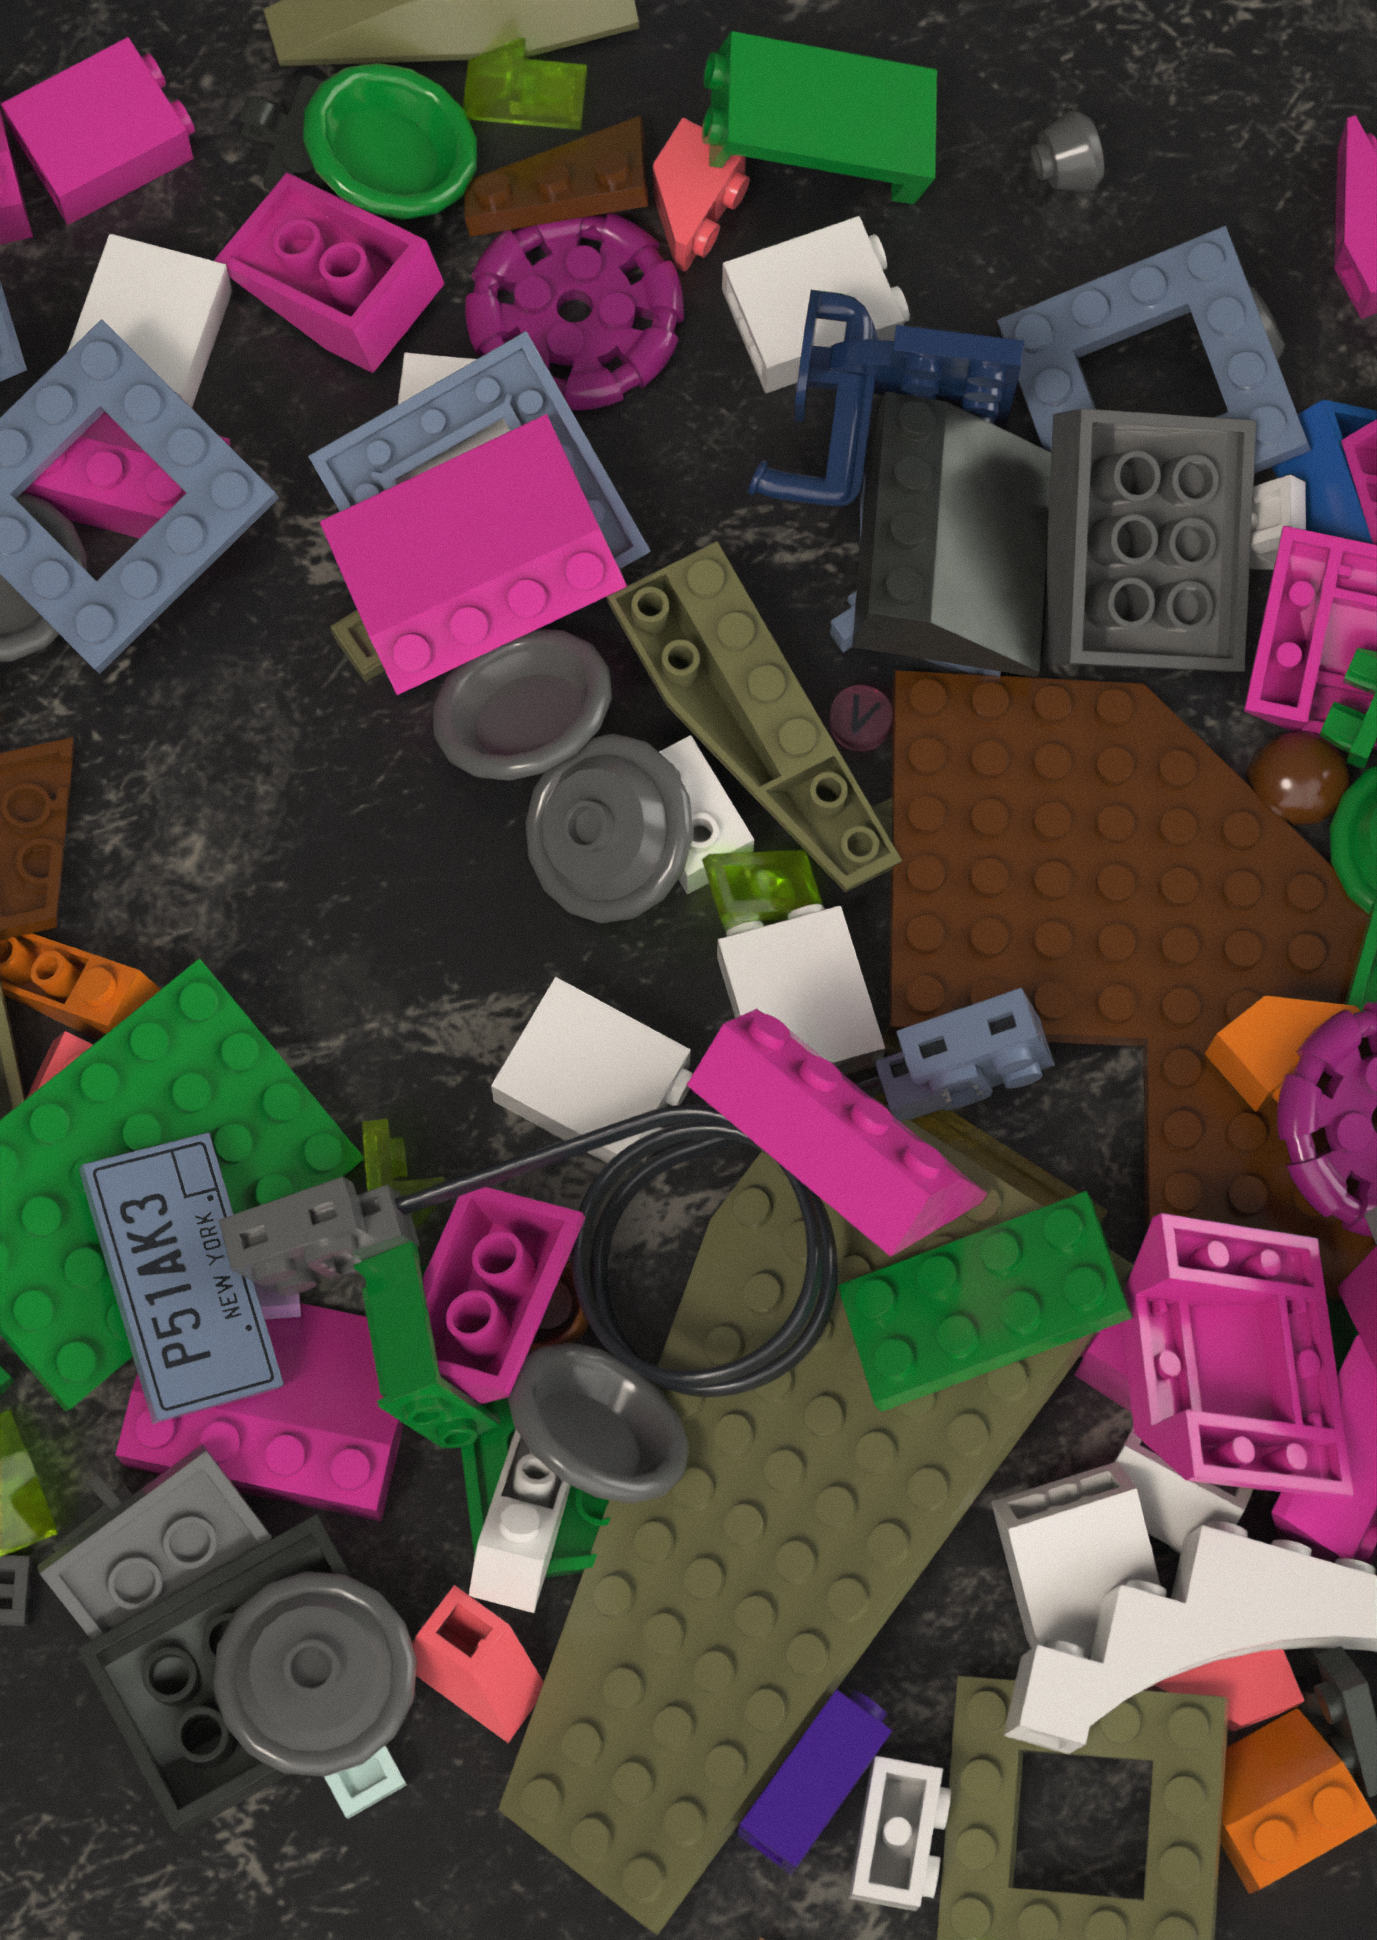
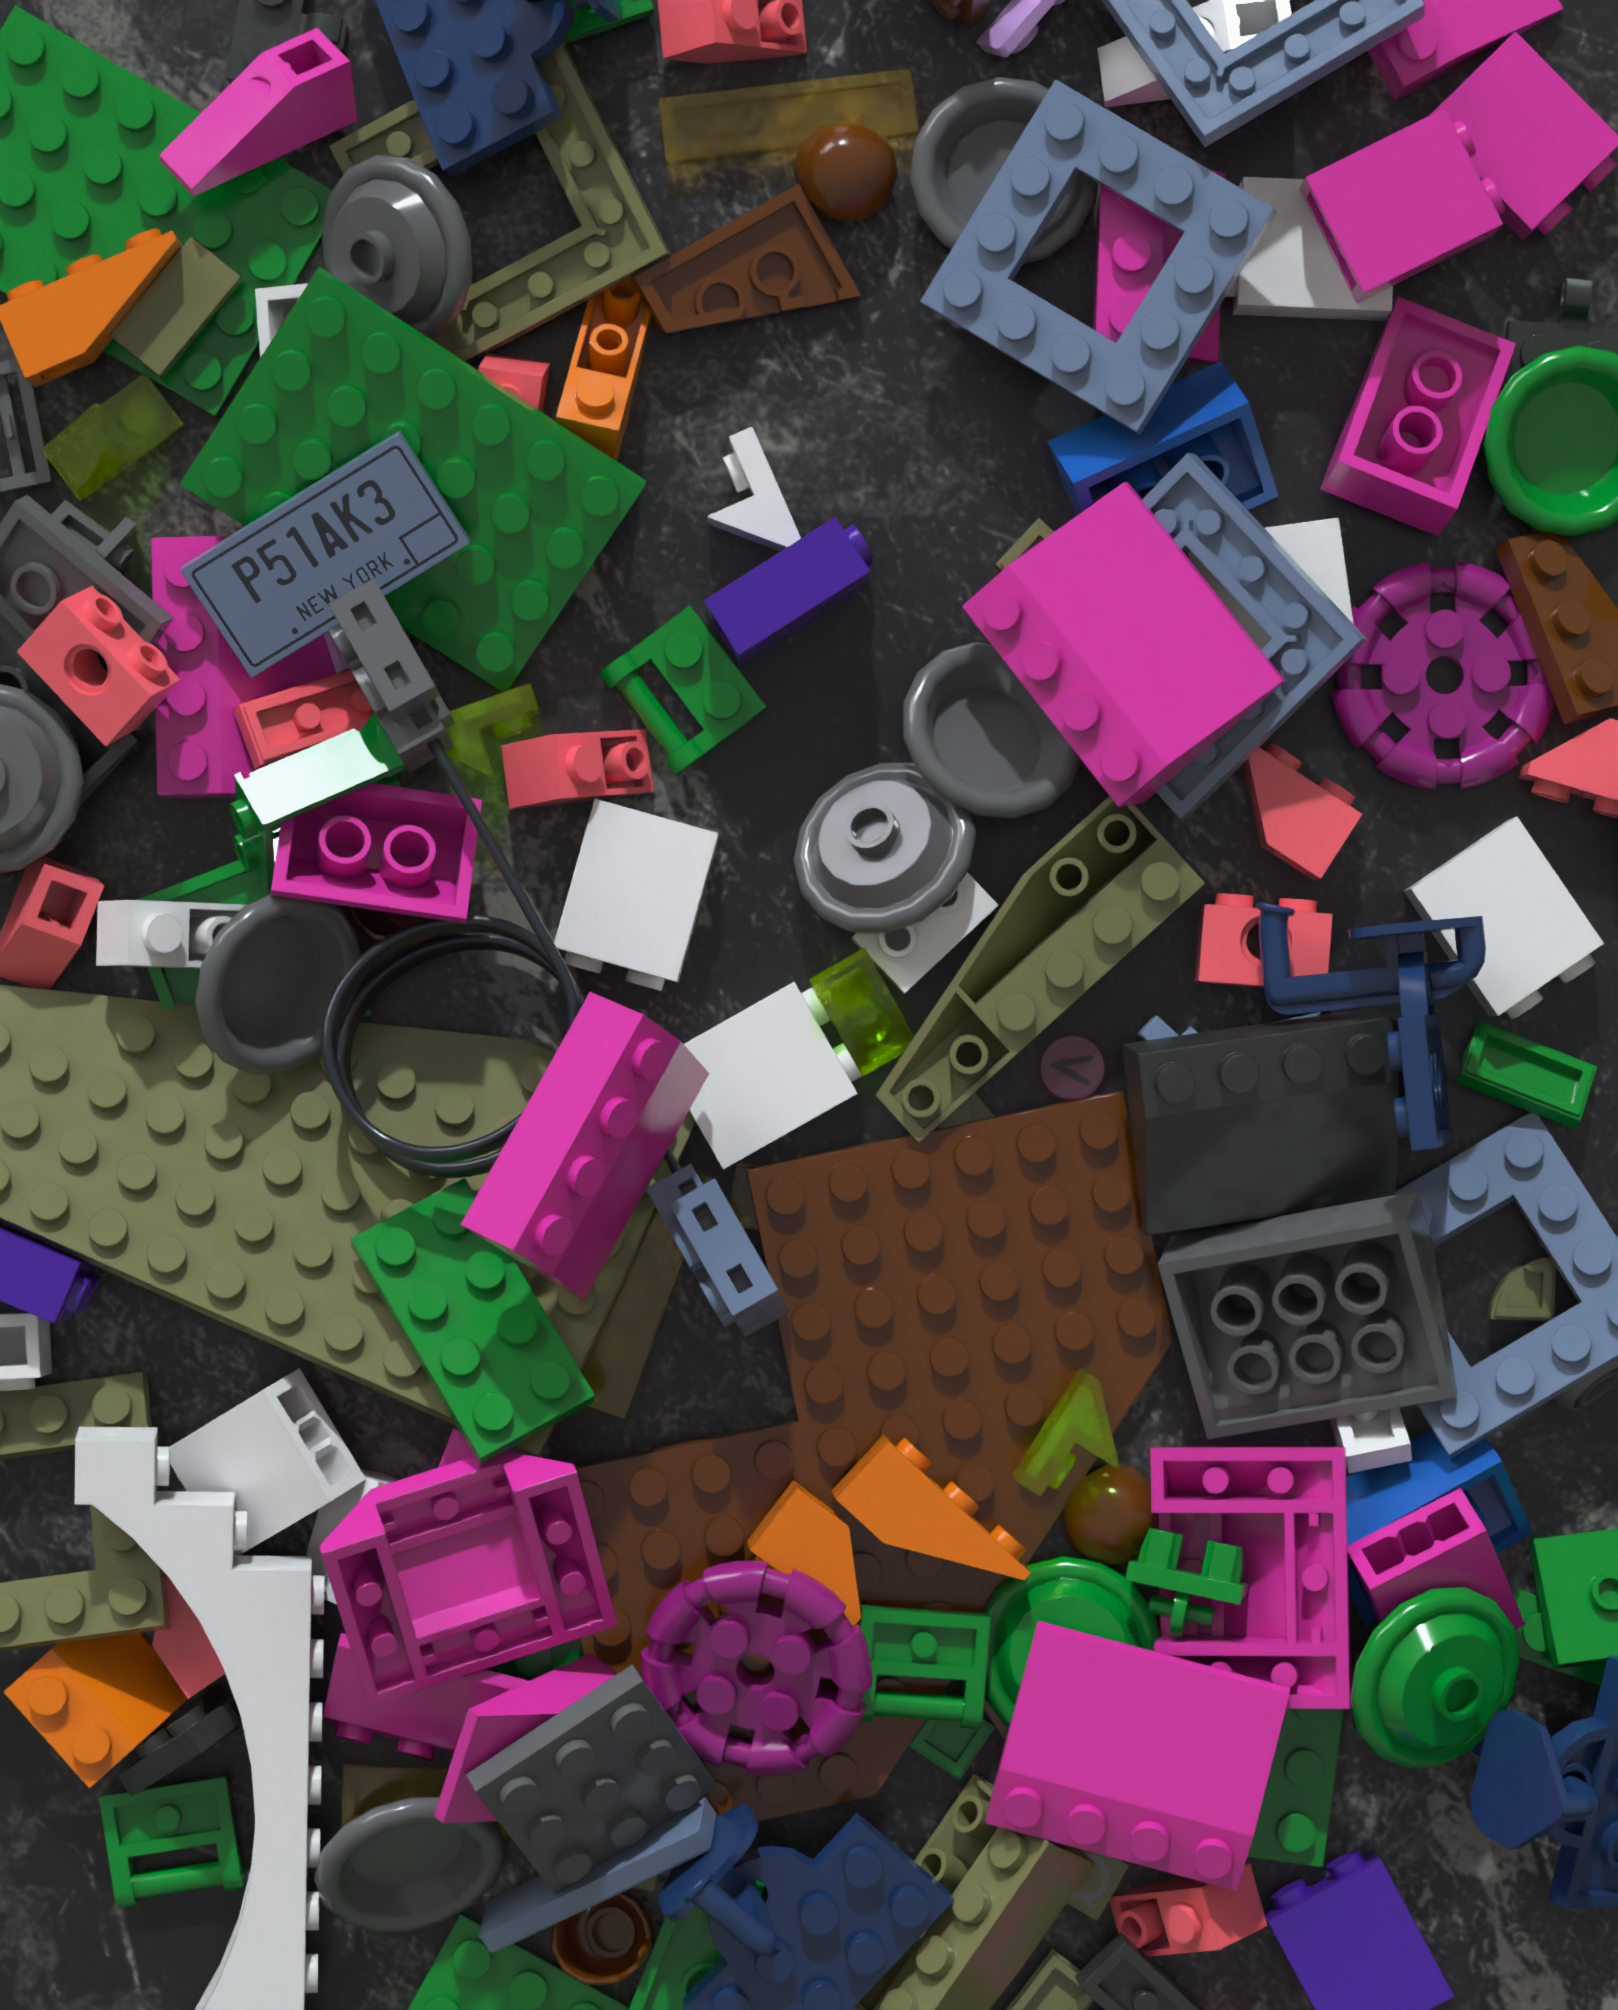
camera: 75 degrees right, 15 degrees up
(131, 224) = (1403, 204): none -> dark pink brick
(215, 1558) = (67, 660): none -> coral brick
(256, 867) = (764, 514): none -> white slope
(287, 539) = (1196, 416): none -> blue slope
(337, 1346) = (302, 717): none -> coral tile
(338, 855) = (790, 589): none -> dark purple brick
(401, 972) = (699, 676): none -> green plate
(455, 1105) = (576, 768): none -> coral slope
(674, 458) = (1295, 816): none -> coral slope
(782, 552) = (1222, 936): none -> coral brick
(974, 301) = (1526, 1074): none -> green tile
(1164, 368) = (1526, 1292): none -> olive tile
(1203, 775) = (1076, 1418): none -> clear neon green slope
(1251, 948) = (914, 1513): none -> orange slope

